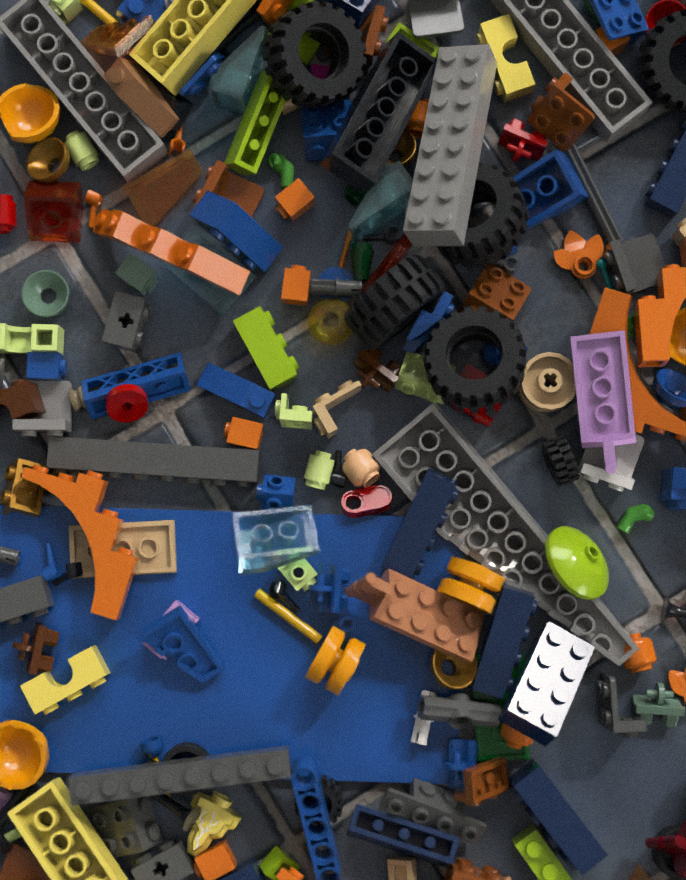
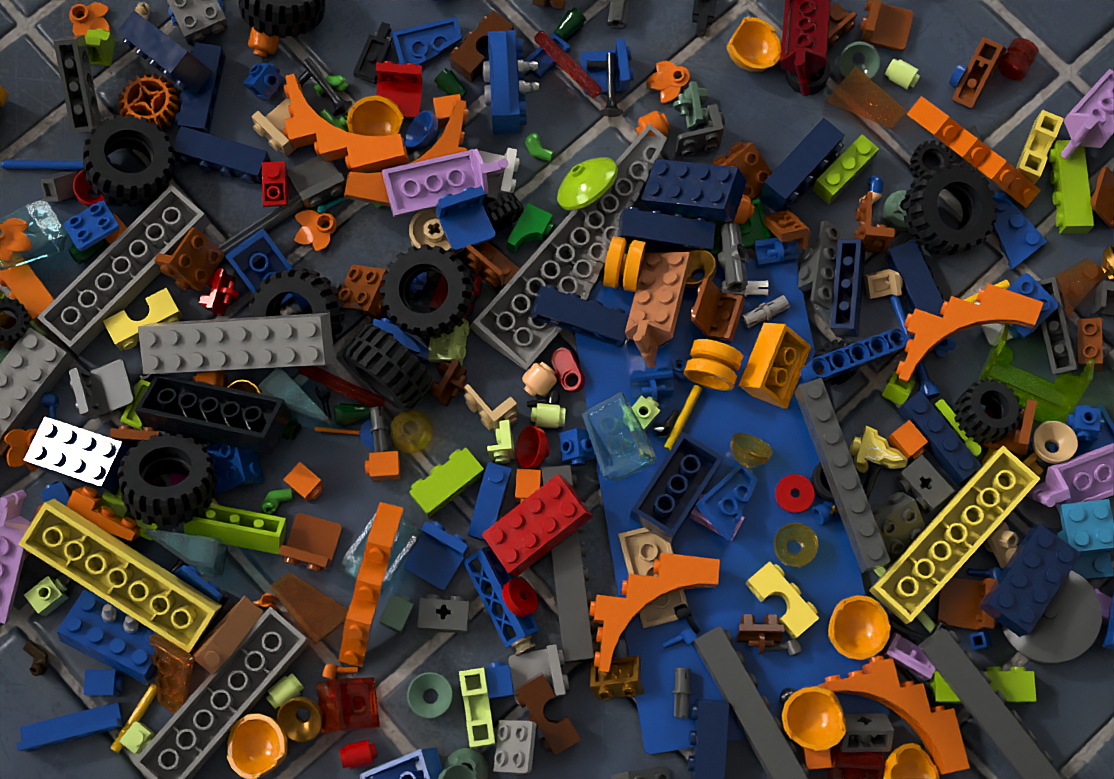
camera: 105 degrees left, 10 degrees down
(16, 680) = (792, 646): none -> dark grey hand
(107, 711) = (804, 536): none -> clear yellow piece
(168, 724) = (802, 486): none -> red piece
(189, 325) = (436, 555): none -> blue bracket
(193, 433) = (537, 525): none -> red brick
(206, 591) = (676, 487): none -> dark blue brick
(237, 230) = (342, 524): blue wedge -> none
(238, 685) = (750, 450): none -> clear yellow piece
(285, 445) = (532, 447): none -> red piece
(326, 731) = (775, 364): none -> light orange slope
(391, 734) = (765, 311): none -> light grey pin
(398, 678) = (716, 312): none -> dark orange bracket
(504, 441) = (491, 264): none -> dark orange bracket
(541, 491) = (531, 226): none -> green arch
(552, 415) = (464, 218): none -> blue bracket
(572, 750) = (751, 164): none -> dark orange bracket
(636, 216) = (275, 184): none -> red slope

